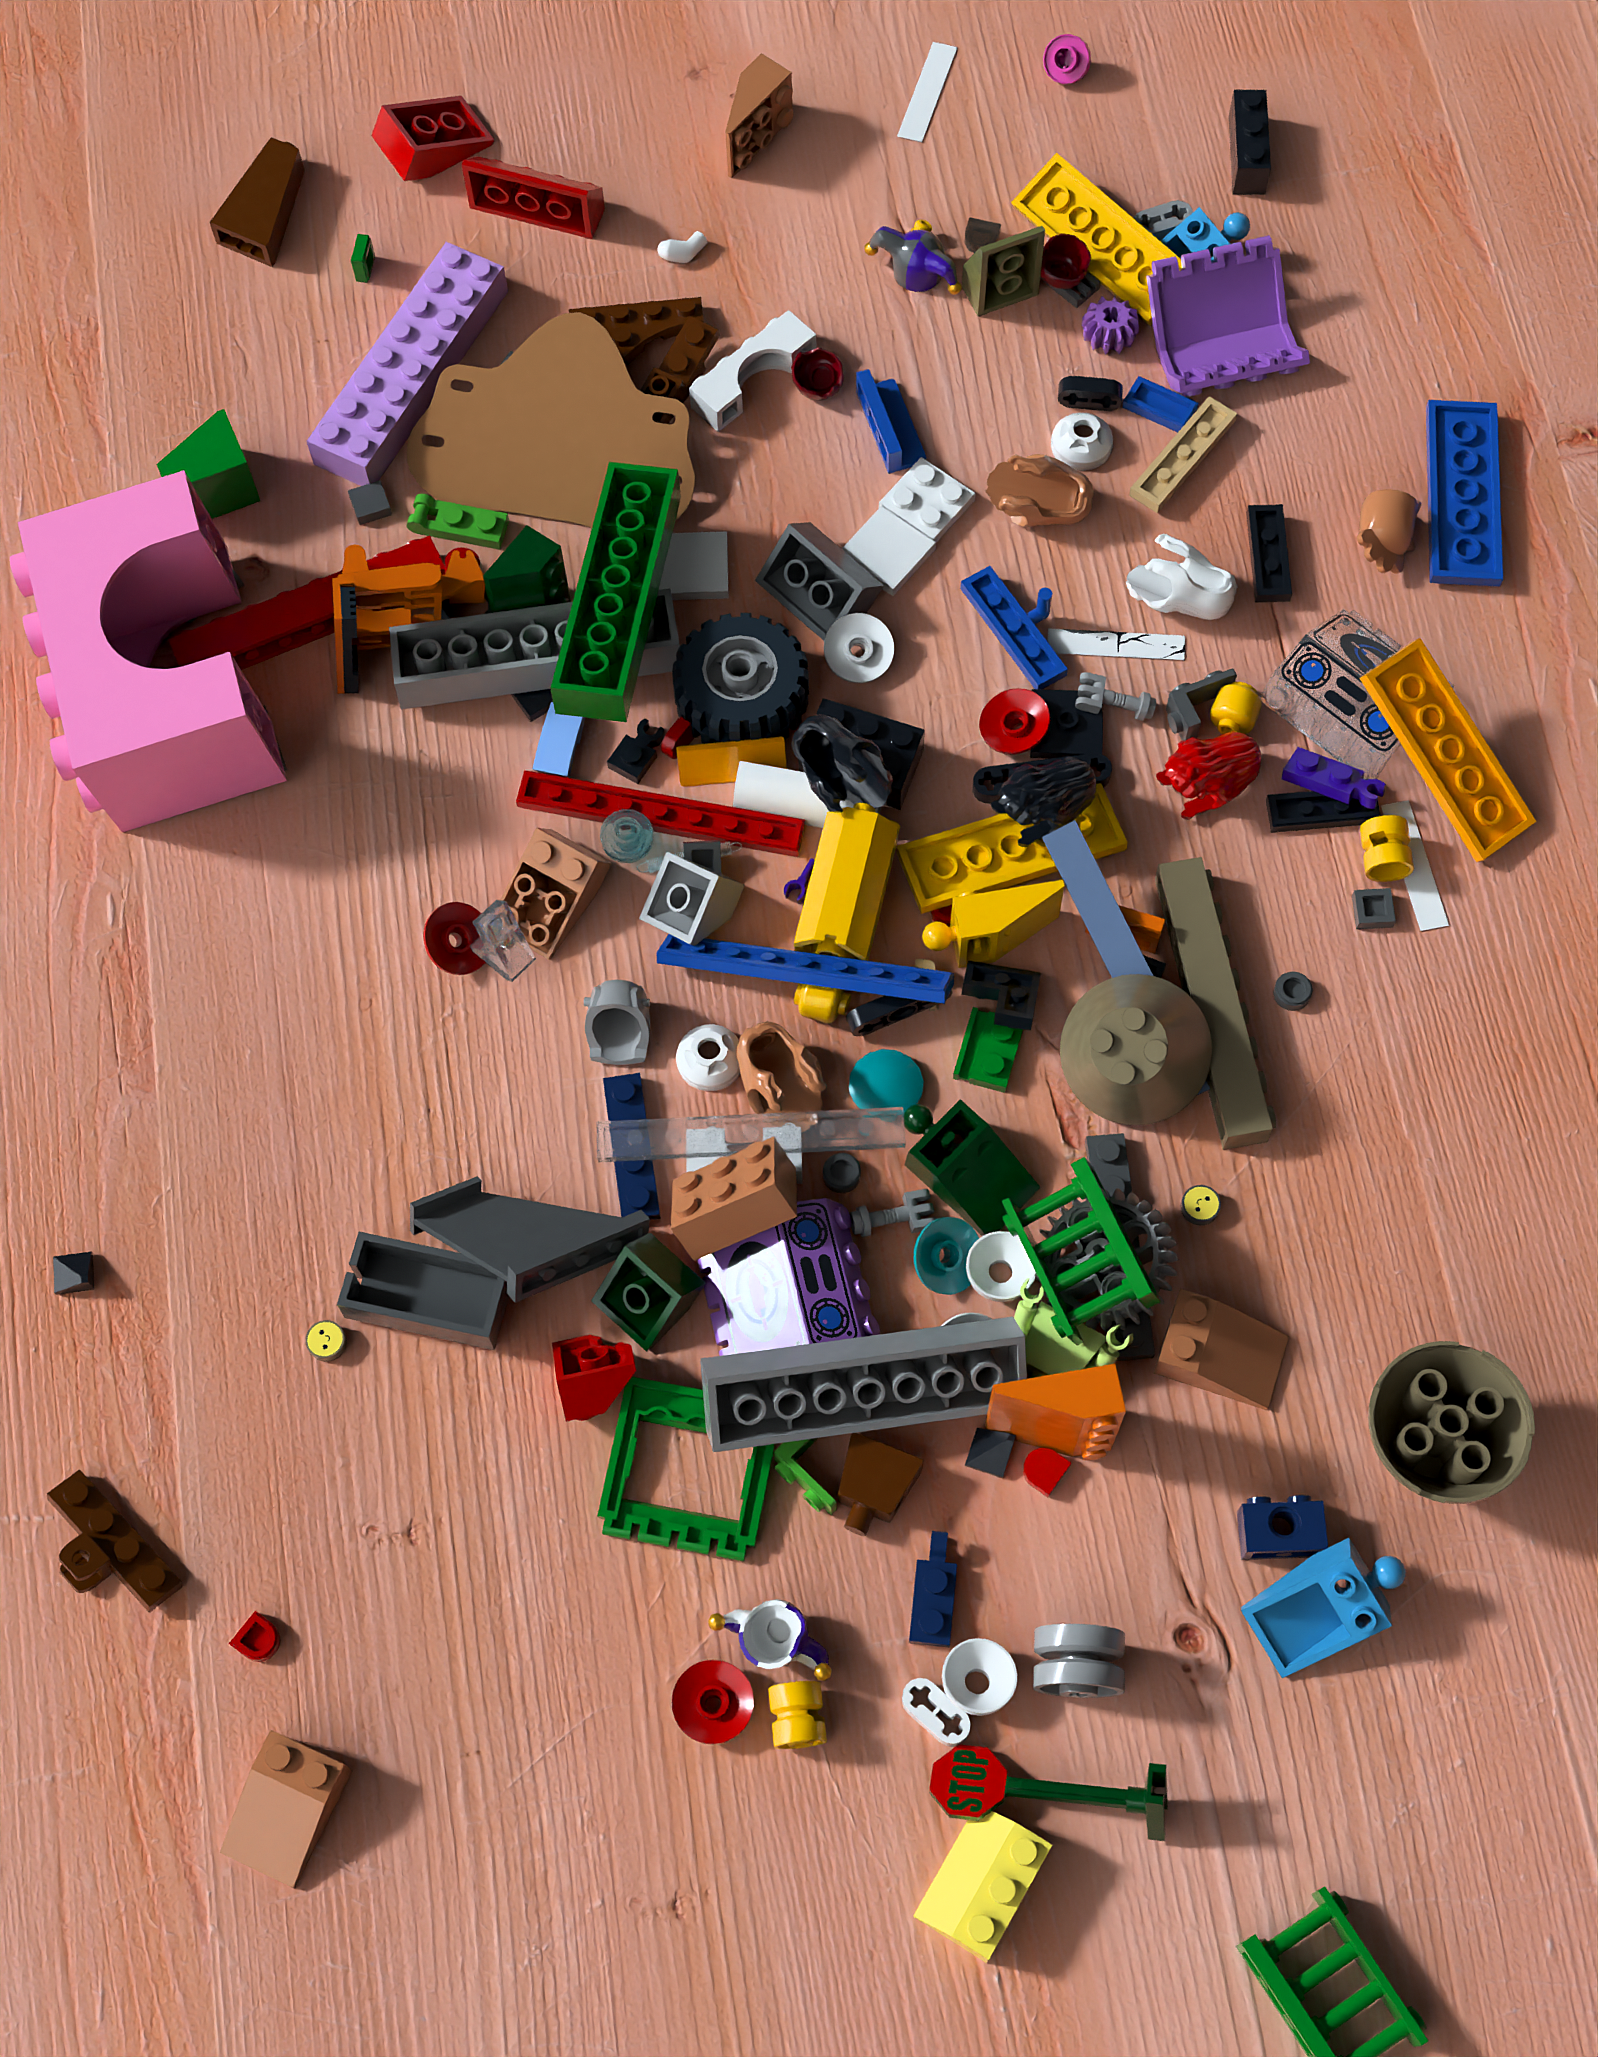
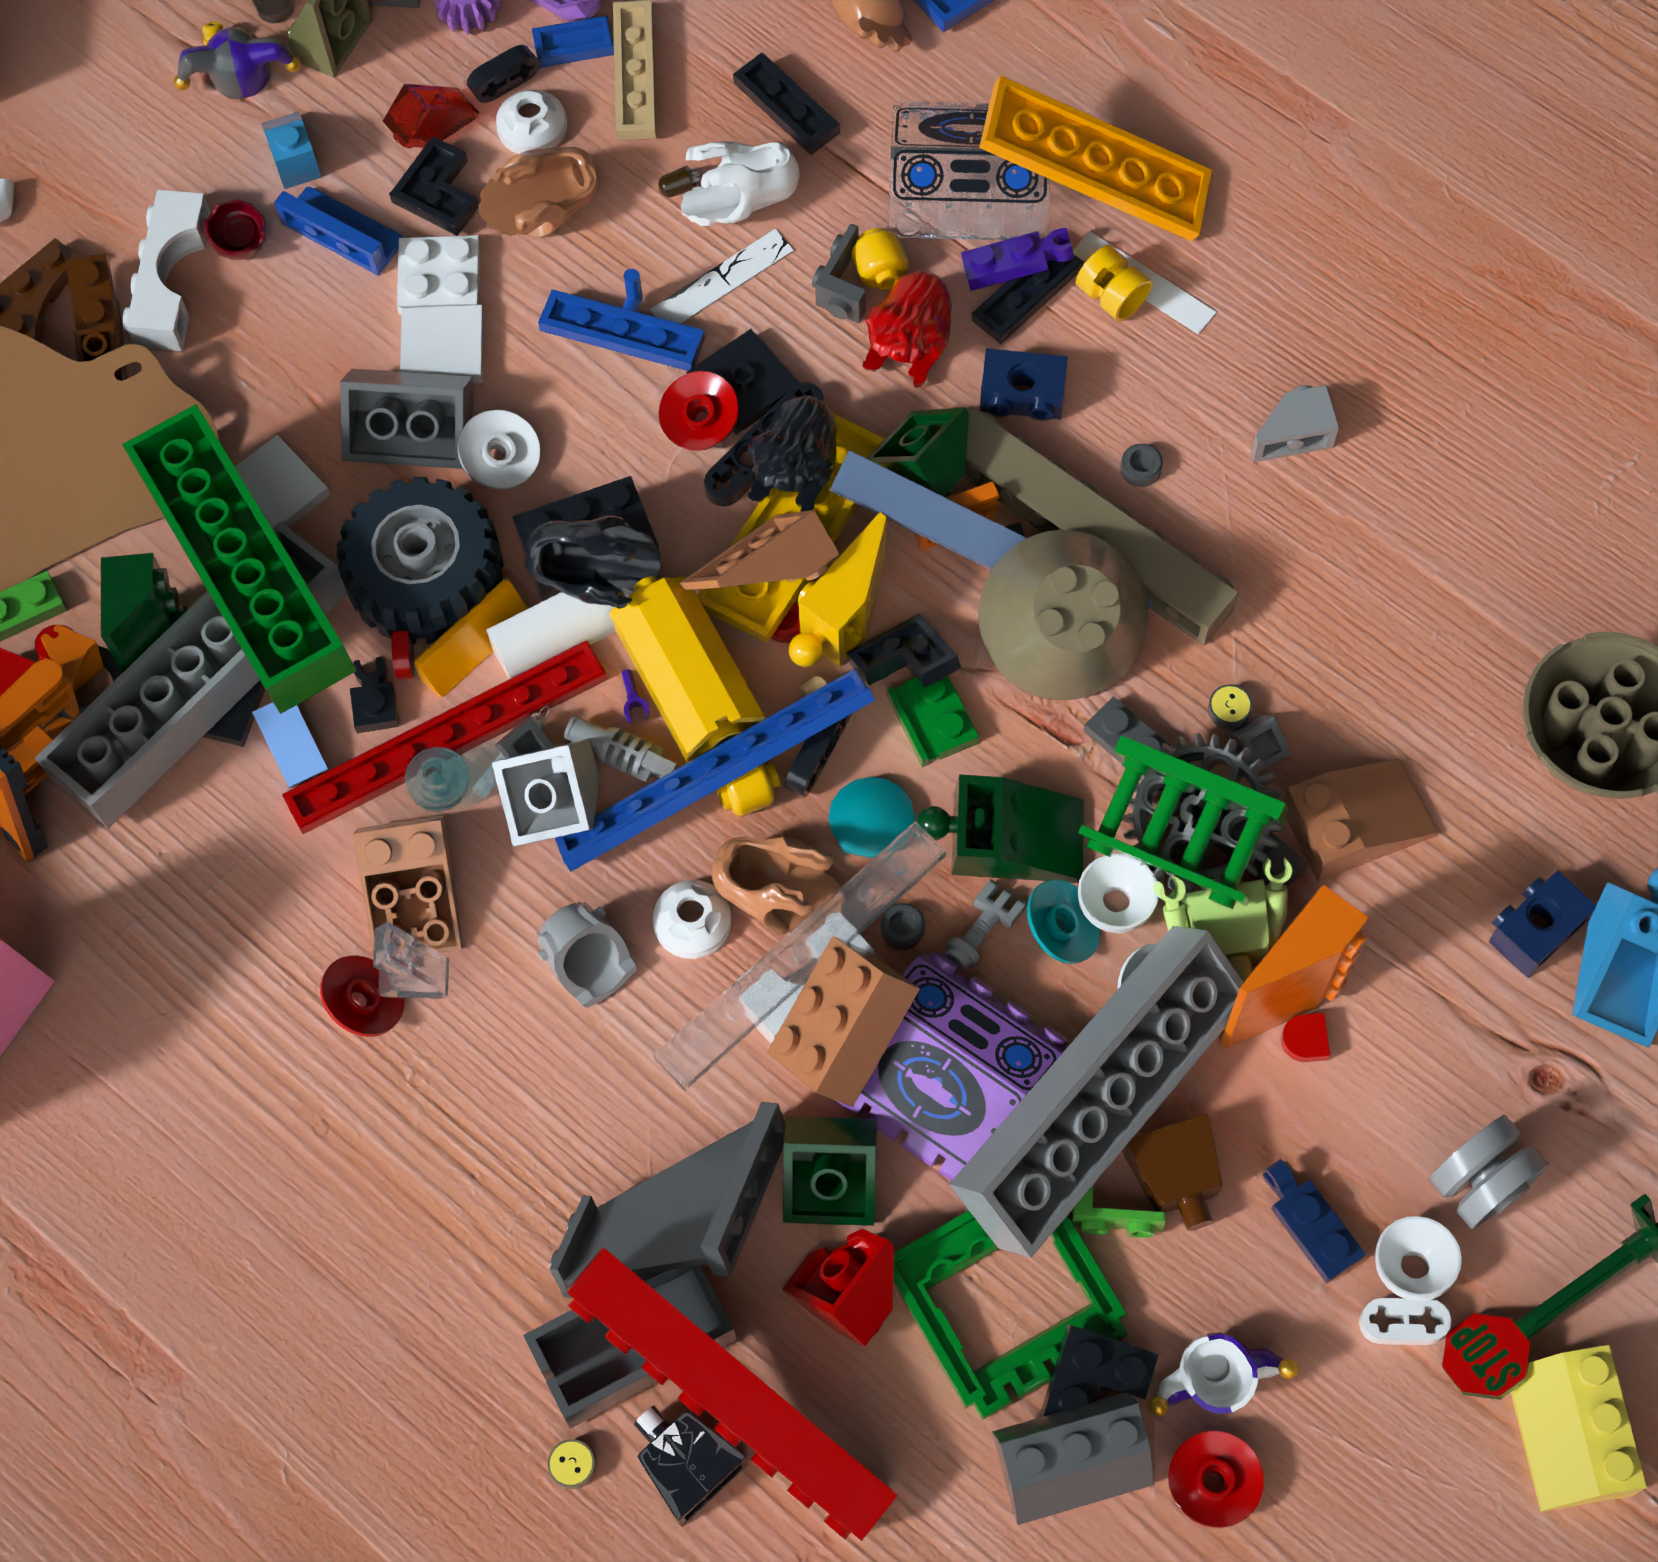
camera: 40 degrees left, 0 degrees up
(392, 1399) = (686, 1461): none -> black torso
(448, 1376) = (731, 1394): none -> red brick
(631, 1606) = (1075, 1457): none -> dark grey slope
(634, 1178) = (725, 1083): dark blue plate -> none
(699, 1556) = (1092, 1361): none -> black plate
(761, 908) = (621, 749): none -> light grey hinge
(797, 1715) = (1298, 1425): yellow wheel -> none
(903, 345) = (291, 150): none -> dark azure slope
(966, 853) = (778, 550): none -> nougat slope
(969, 437) = (427, 187): none -> black plate
(990, 1451) = (1248, 1060): black slope -> none
(1014, 386) = (428, 112): none -> clear red slope
(1093, 694) = (750, 335): light grey hinge -> none
(1137, 864) = (927, 449): none -> dark green slope
(1143, 553) = (678, 181): none -> dark brown piece
(1199, 1247) = (1263, 738): none -> light grey slope
(1253, 852) = (1040, 372): none -> dark blue brick
(1373, 908) = (1144, 344): dark grey tile -> none
(1428, 1046) = (1297, 425): none -> light grey slope

